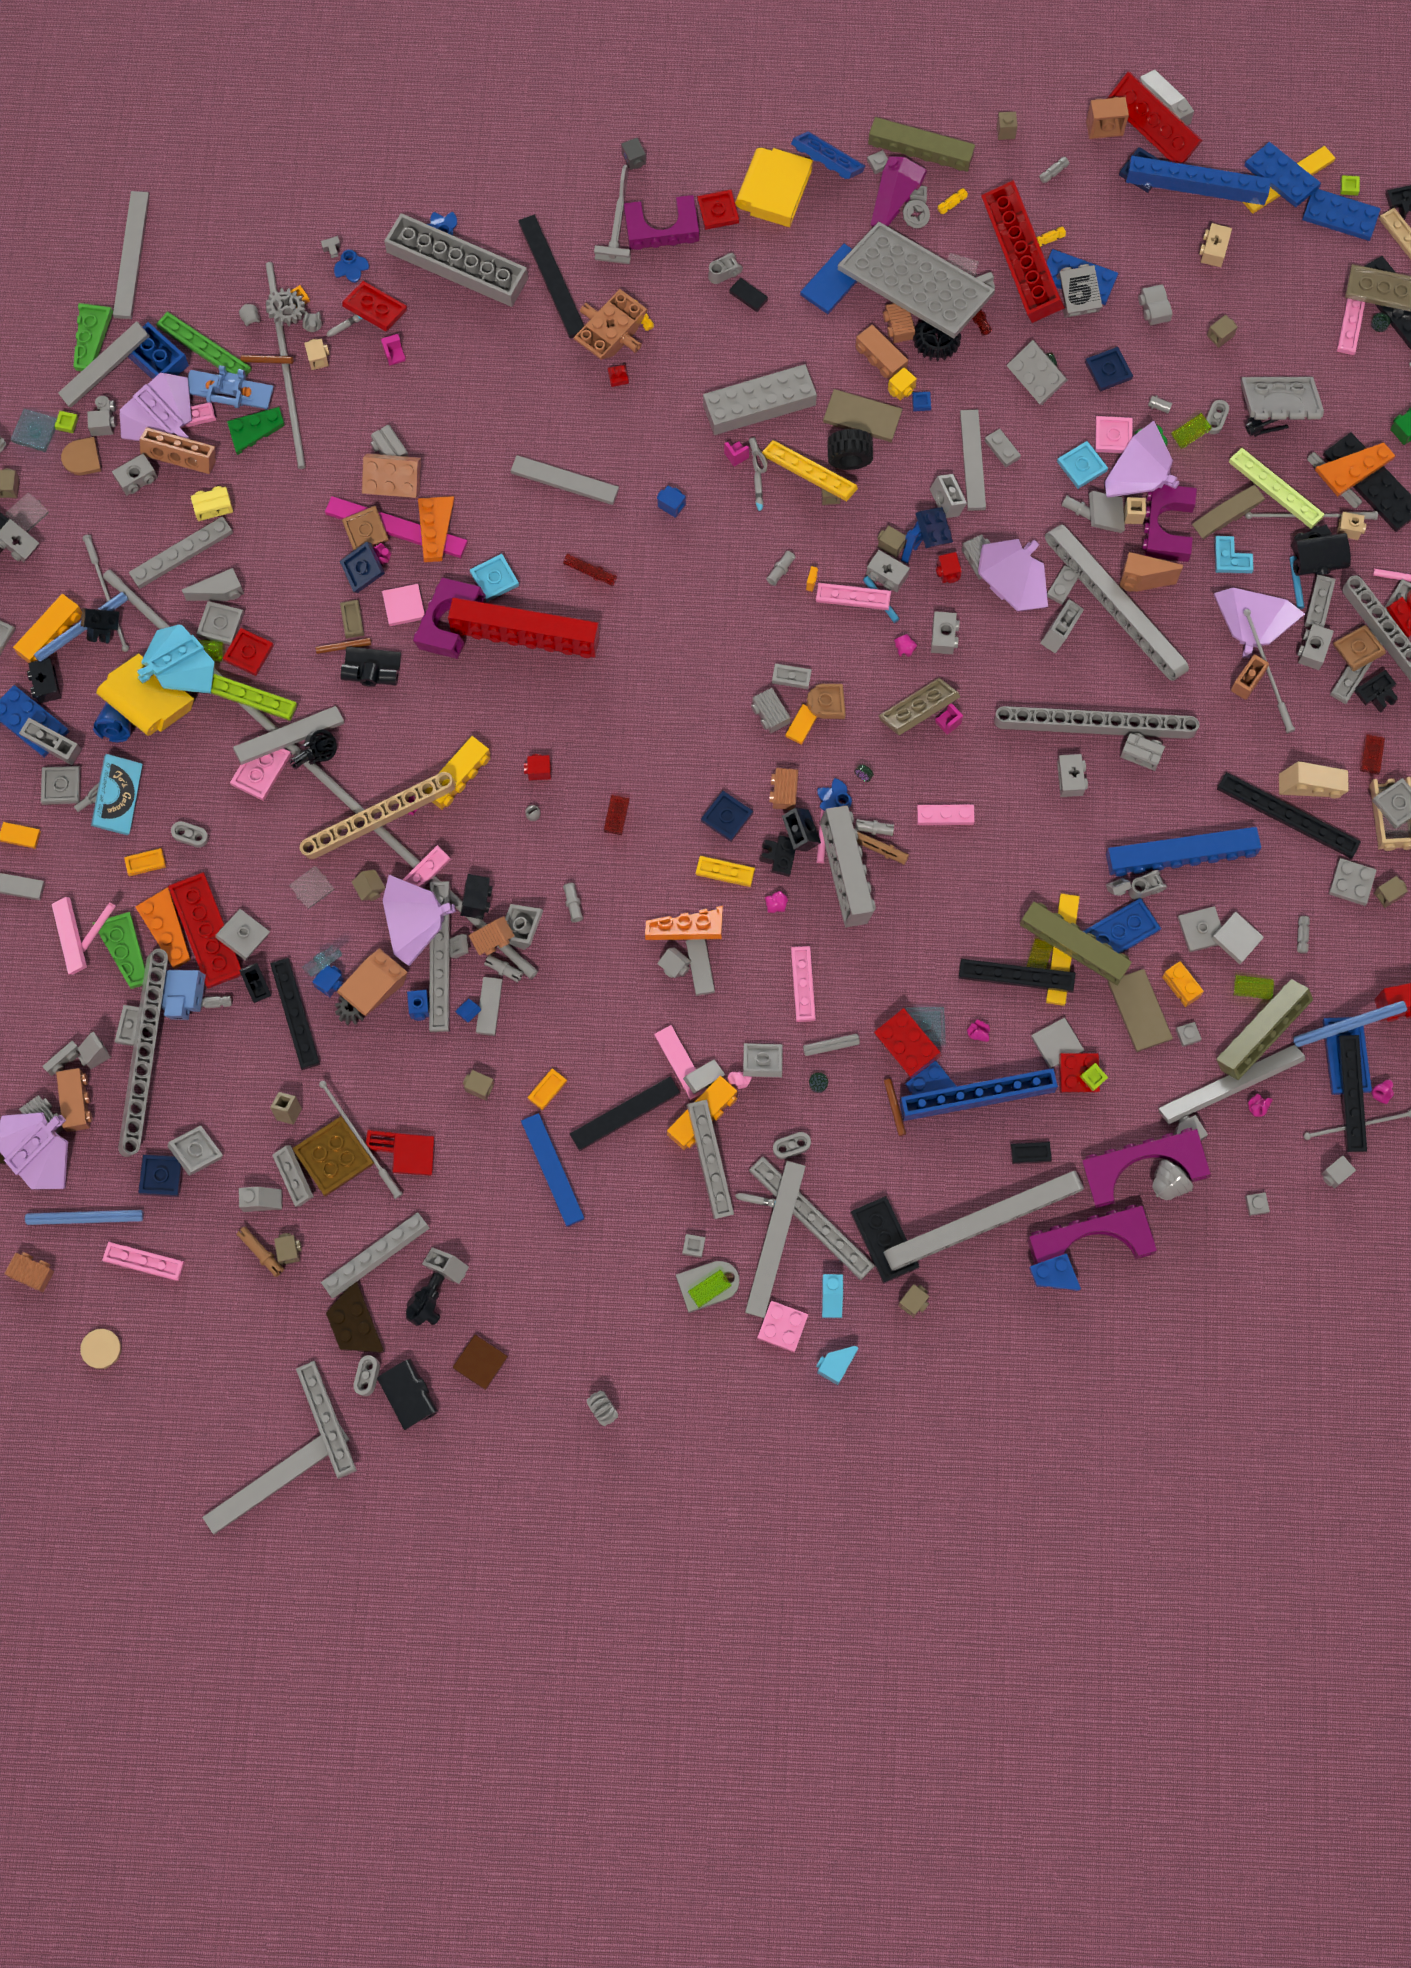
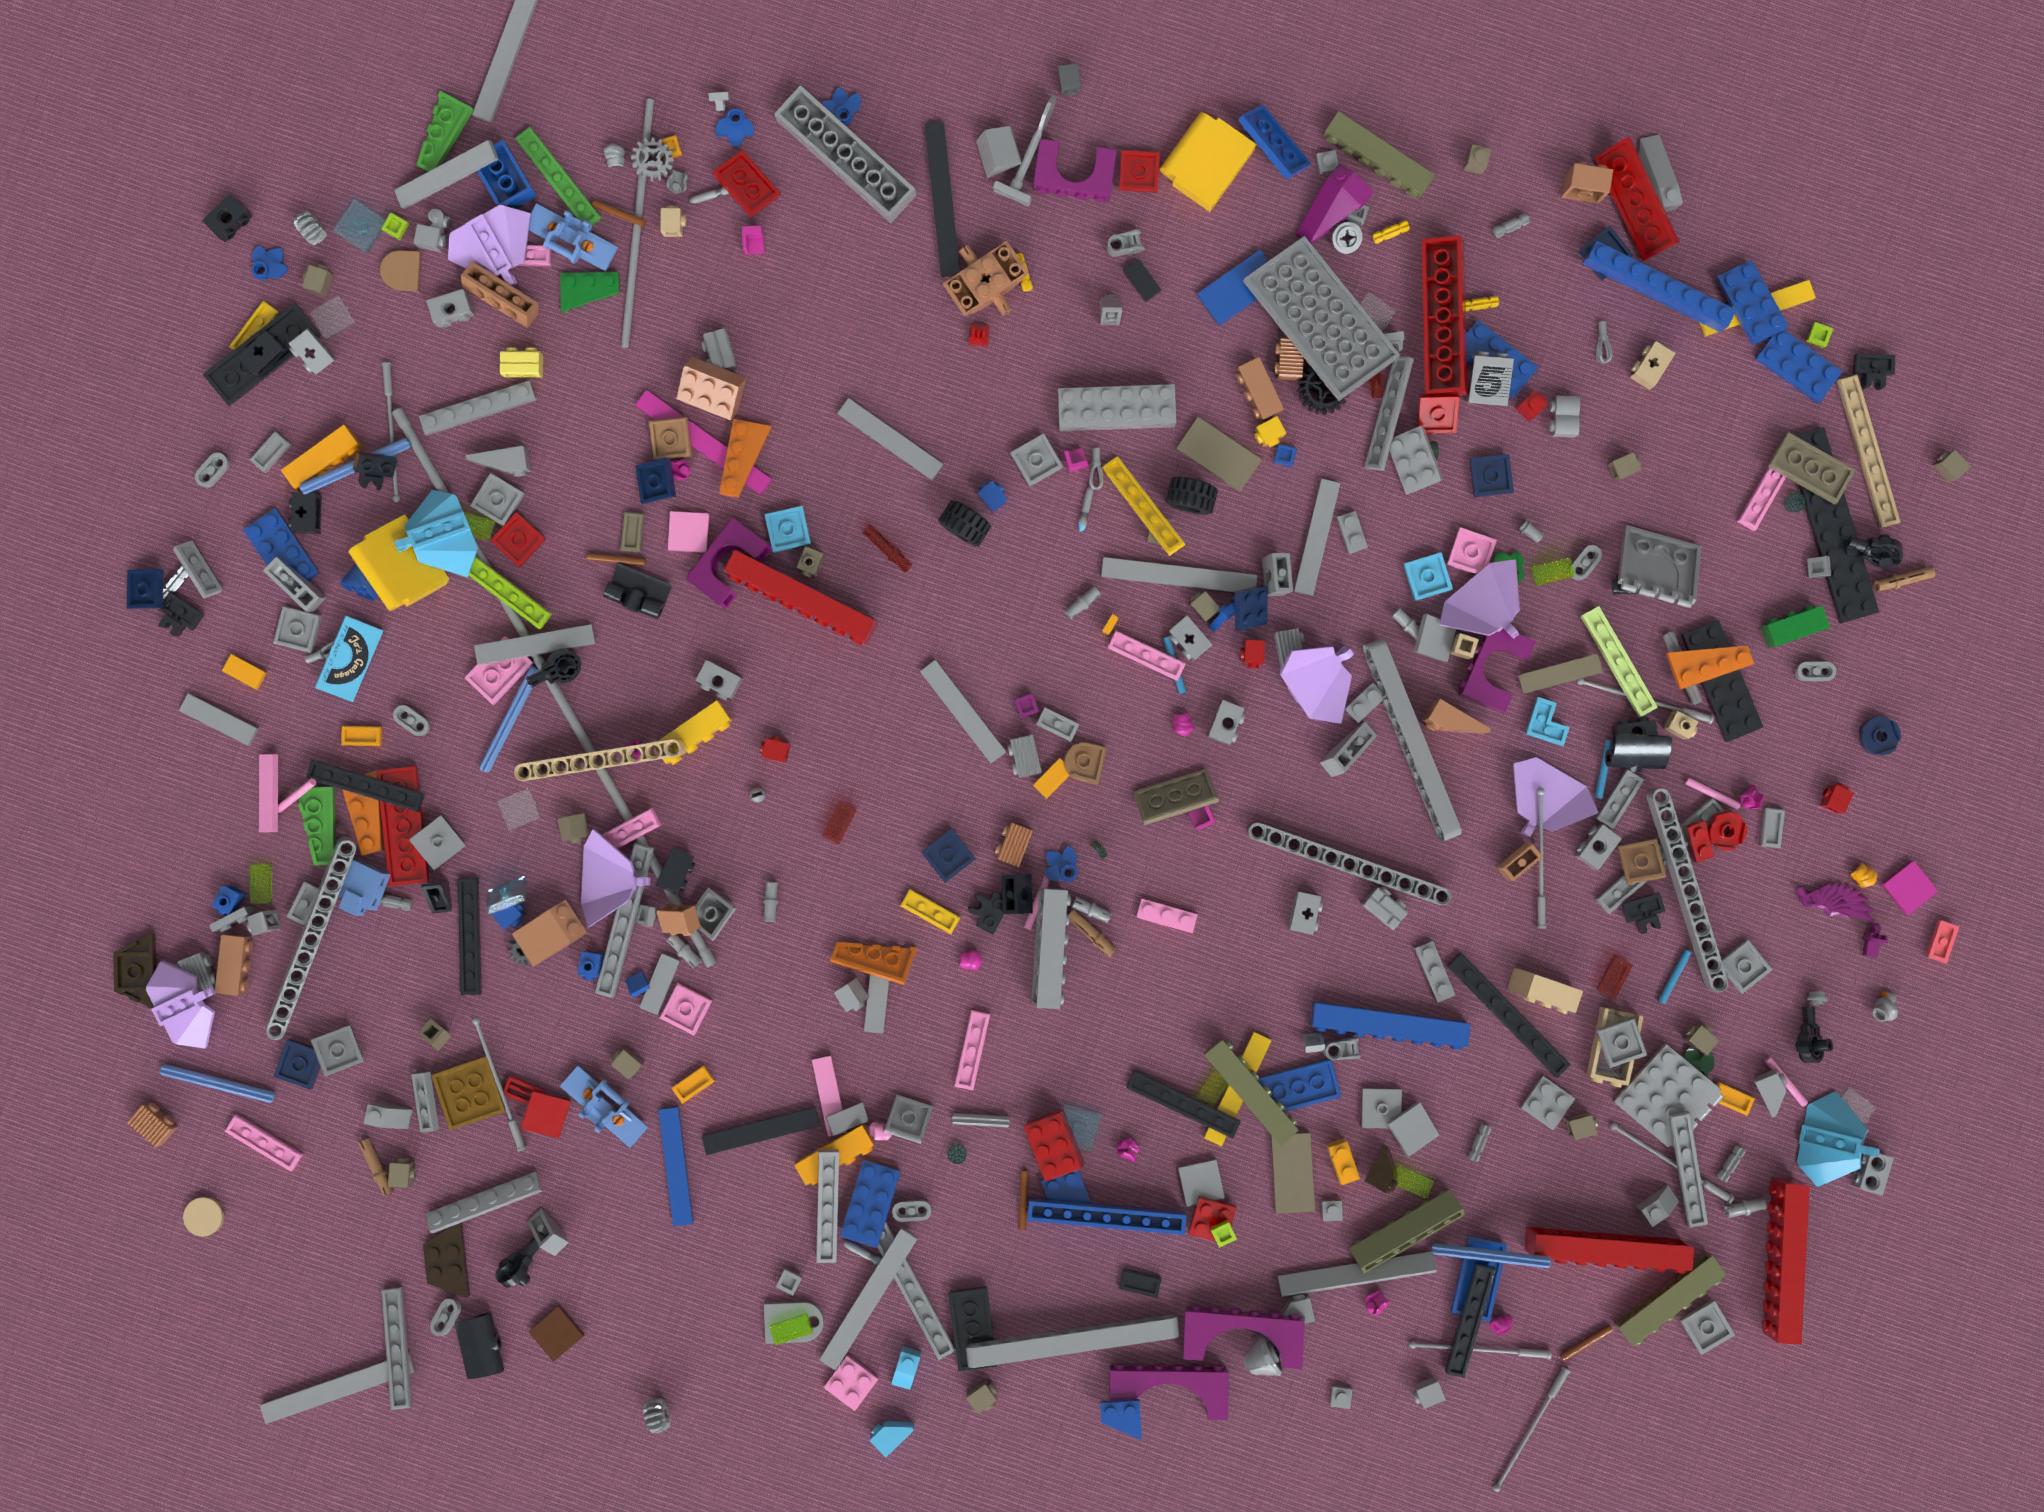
camera: 15 degrees right, 15 degrees up
(53, 1041) = (228, 900): none -> blue brick
(80, 1020) = (260, 883): none -> clear neon green tile
(163, 900) = (365, 785): none -> black tile
(280, 813) = (507, 723): none -> medium blue axle
(460, 714) = (730, 681): none -> light grey brick
(464, 1137) = (599, 1110): none -> medium blue piece
(520, 1022) = (686, 1009): none -> bright pink tile
(523, 597) = (810, 562): none -> dark tan brick
(588, 223) = (998, 150): none -> light grey slope
(654, 525) = (964, 523): none -> black tyre
(701, 461) = (1036, 460): none -> light grey plate
(701, 690) = (963, 711): none -> light grey tile
(729, 322) = (1110, 310): none -> light grey slope
(750, 1149) = (870, 1203): none -> blue plate
(758, 668) = (1026, 706): none -> magenta plate
(854, 524) = (1176, 575): none -> light grey tile
(1001, 342) = (1388, 413): none -> light grey tile
(1045, 328) = (1438, 413): none -> plate
(1123, 303) = (1532, 405): none -> red brick
(1166, 236) = (1603, 337): none -> light grey piece
(1207, 796) = (1434, 971): none -> light grey plate
(1223, 984) = (1383, 1172): none -> dark brown slope

